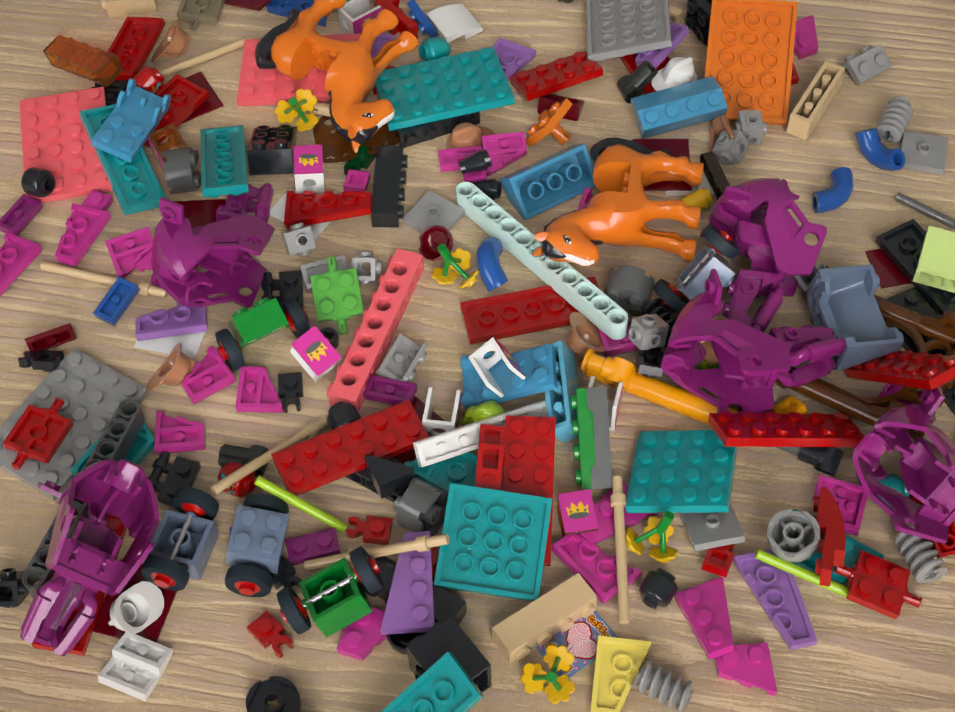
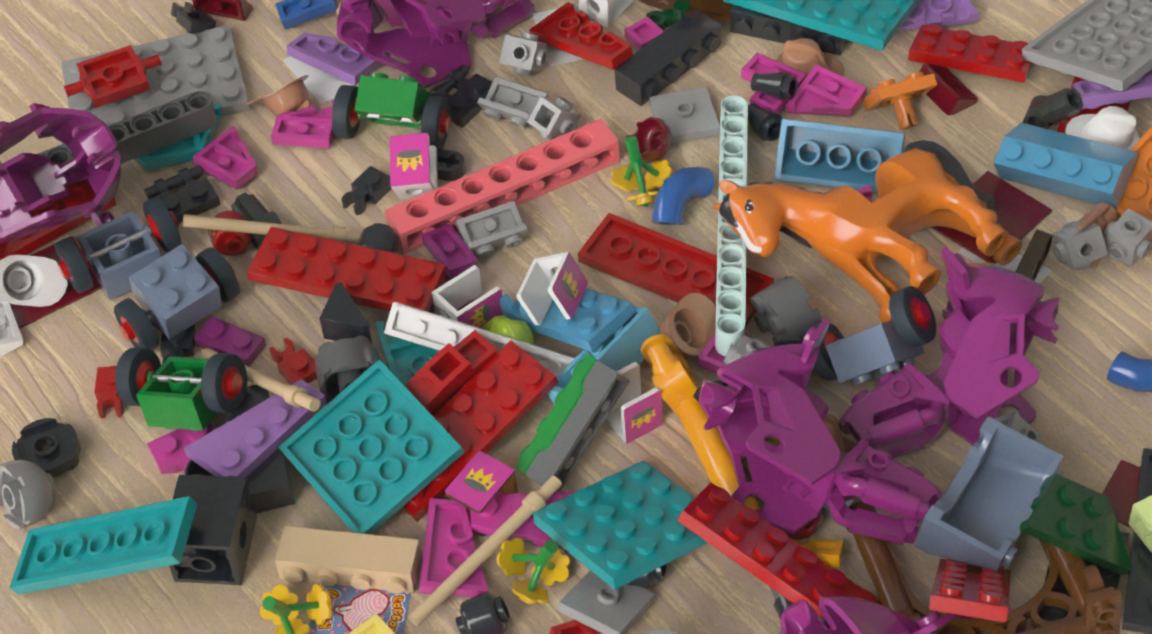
camera: 45 degrees right, 5 degrees down
(256, 392) = (334, 168): dark pink wing -> none
(300, 504) = (248, 289): lime bar -> none
(337, 295) = (496, 126): bright green plate -> none
(907, 295) = (1078, 523): none -> dark green wing

